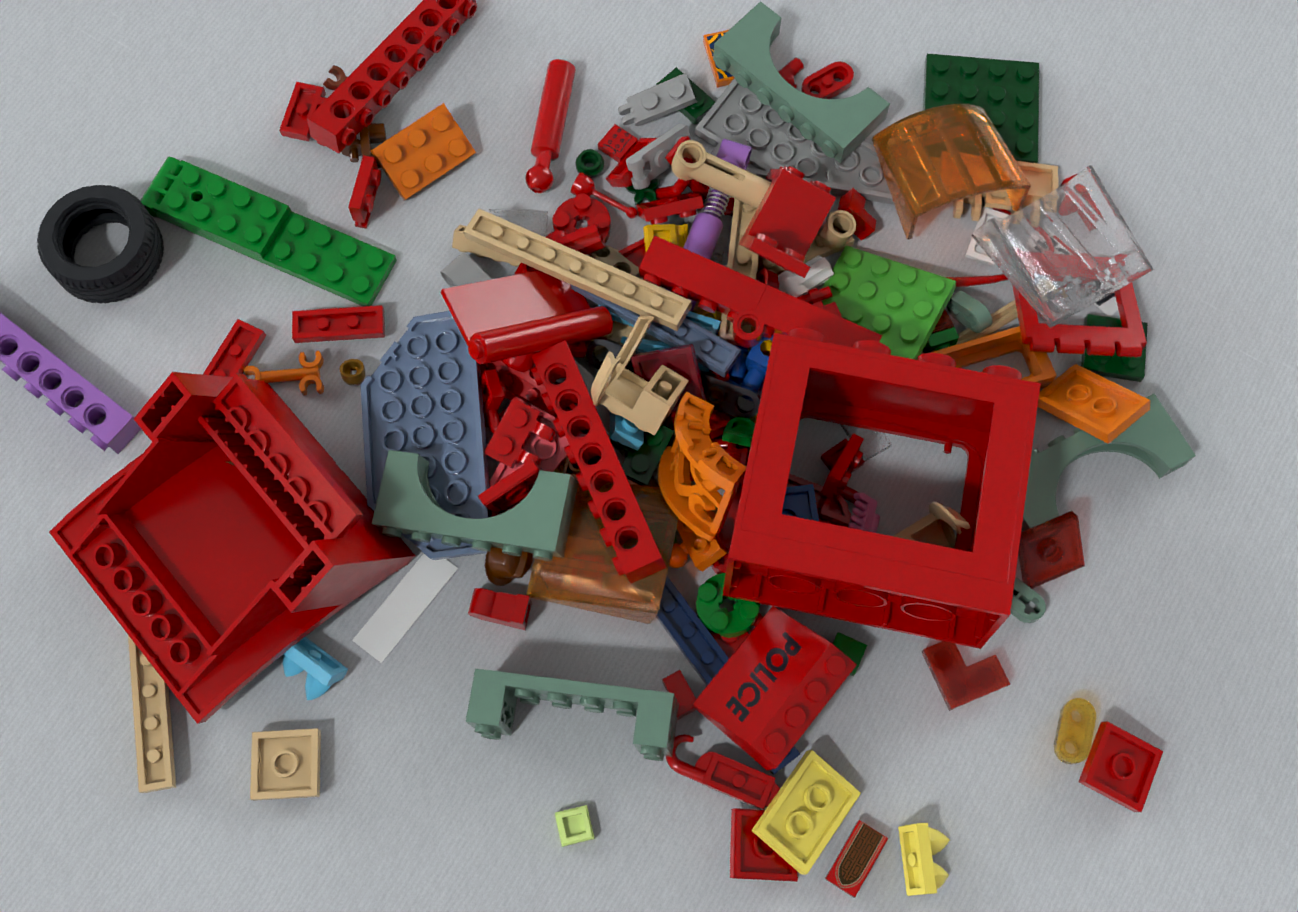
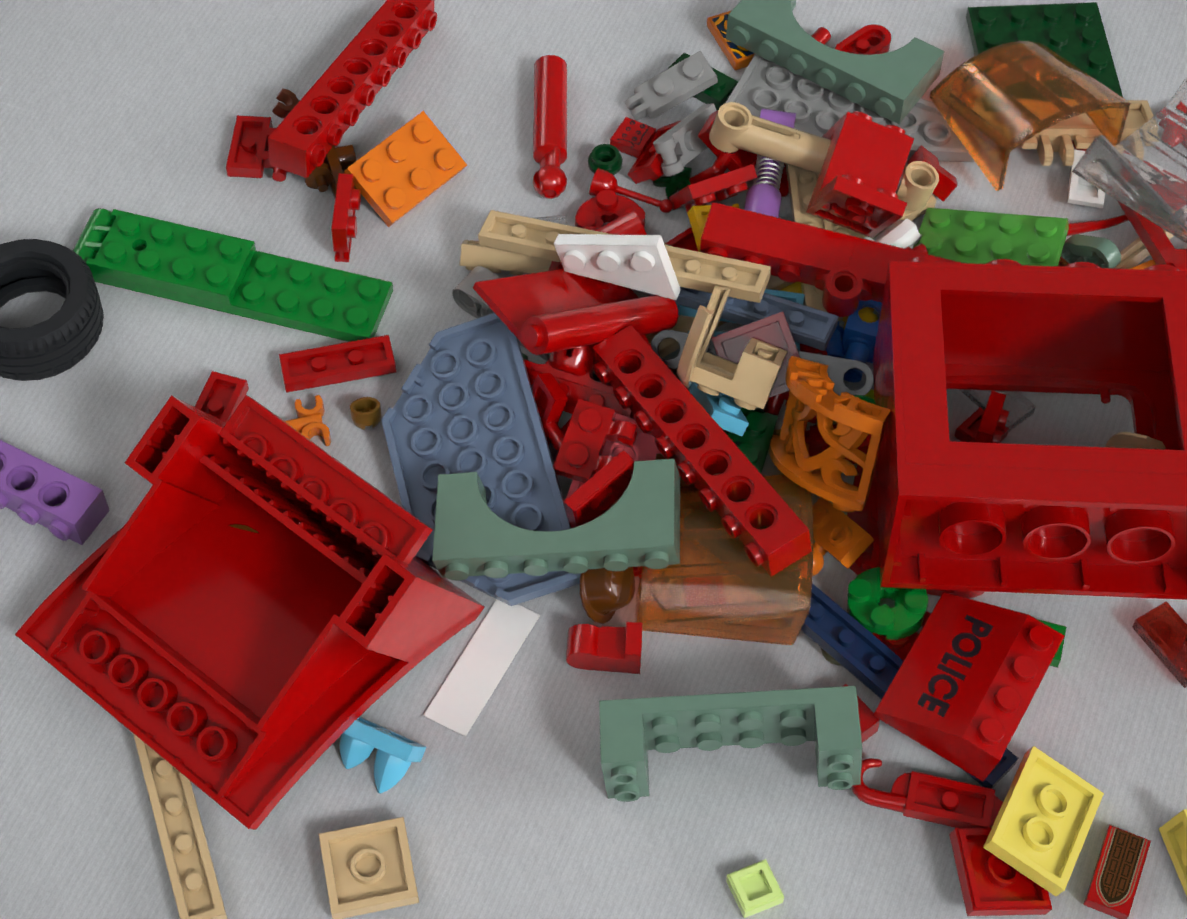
camera: 10 degrees left, 15 degrees down
(569, 278) = (623, 260): none -> white wing

